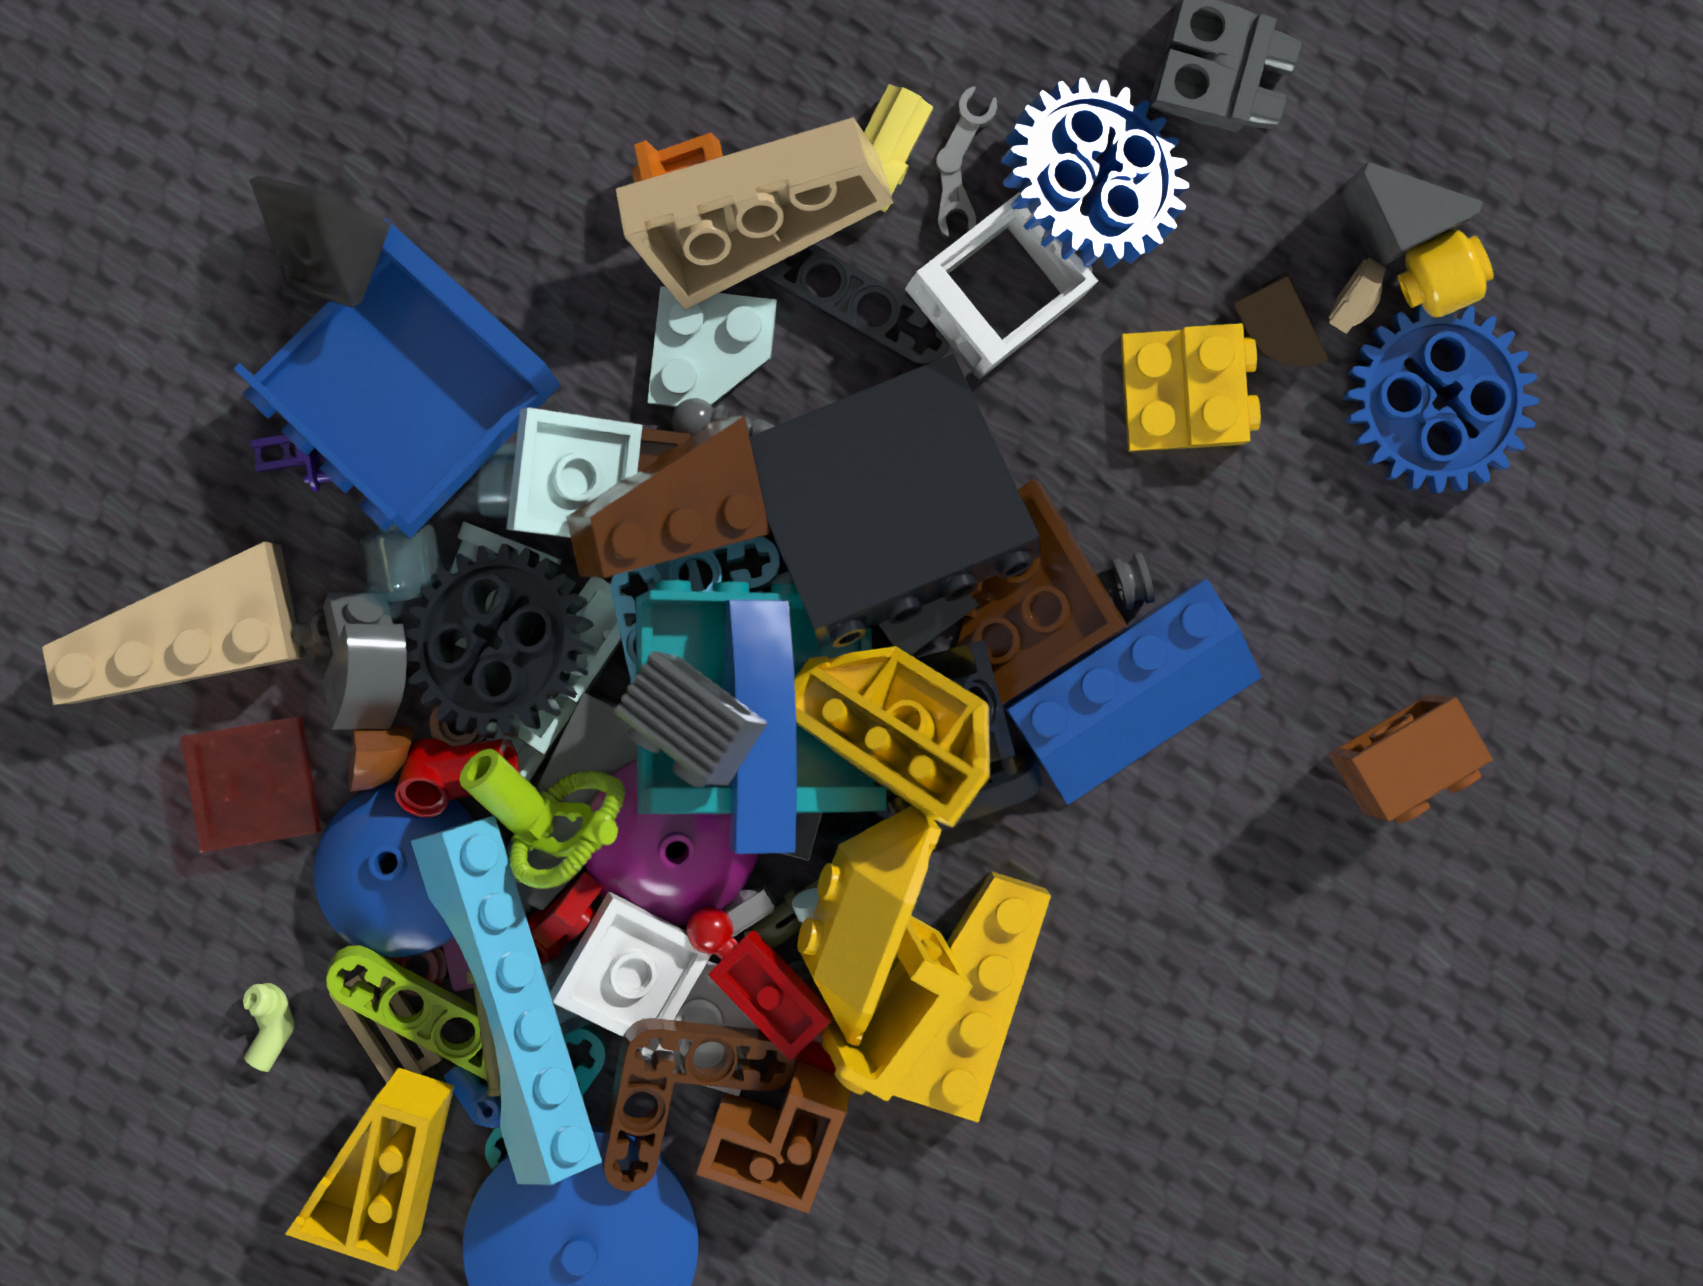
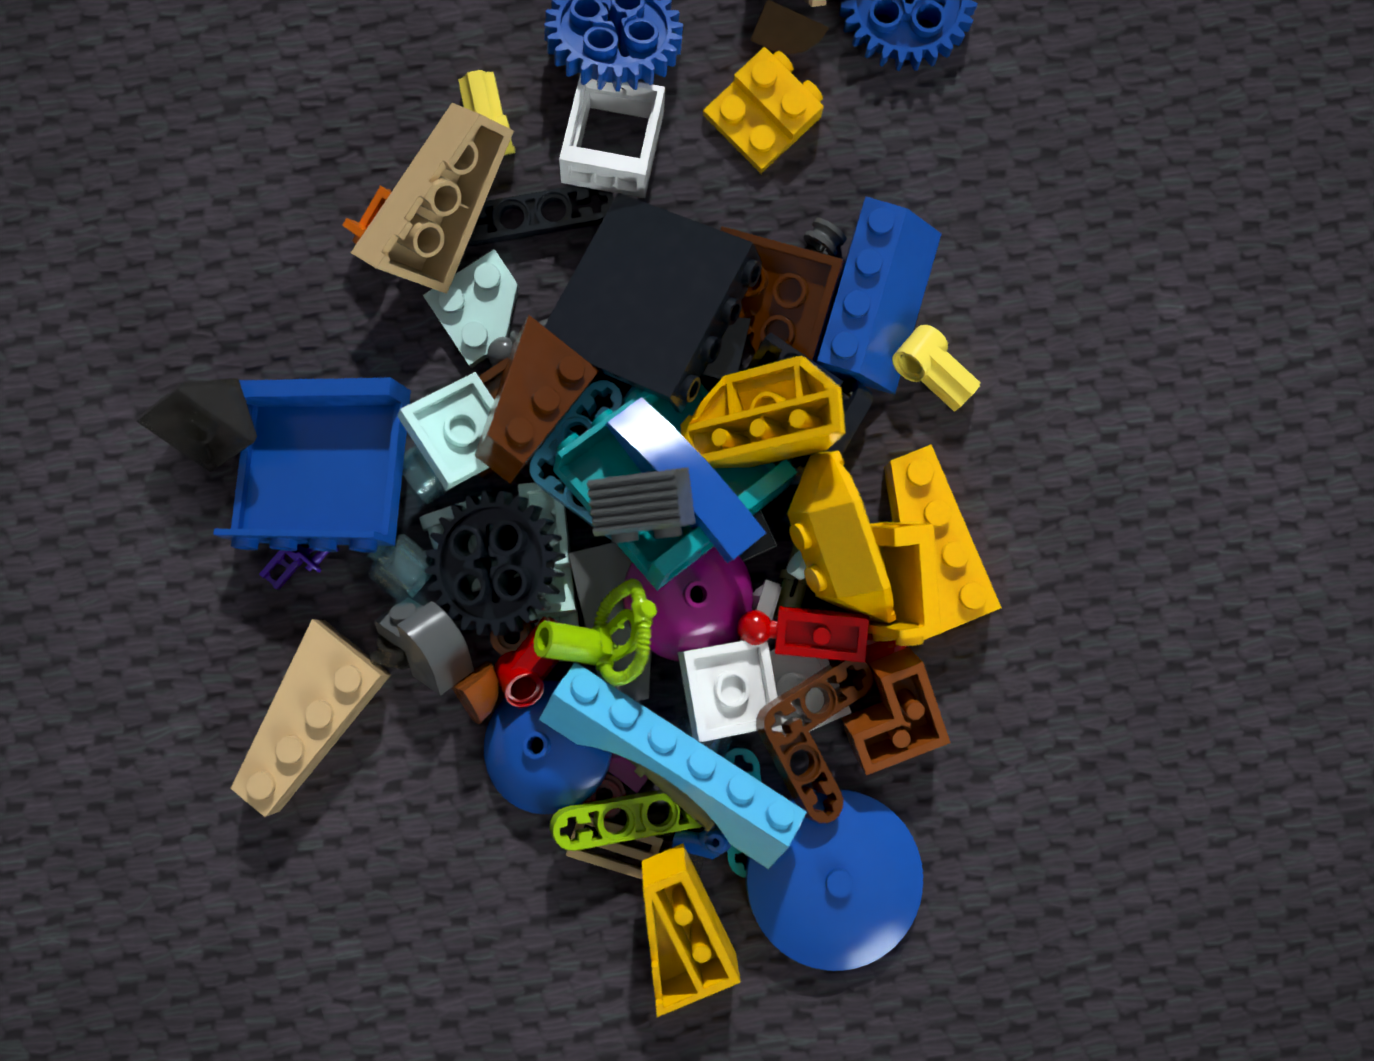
camera: 40 degrees left, 5 degrees down
(251, 784) = (419, 770): clear red plate -> none
(274, 1021) = (547, 900): yellowish green arm -> none
(564, 918) = (665, 688): red plate -> none
(950, 162) = (527, 96): light grey piece -> none
(1127, 801) = (926, 360): none -> light yellow piece
(1412, 758) = (1065, 201): dark orange brick -> none

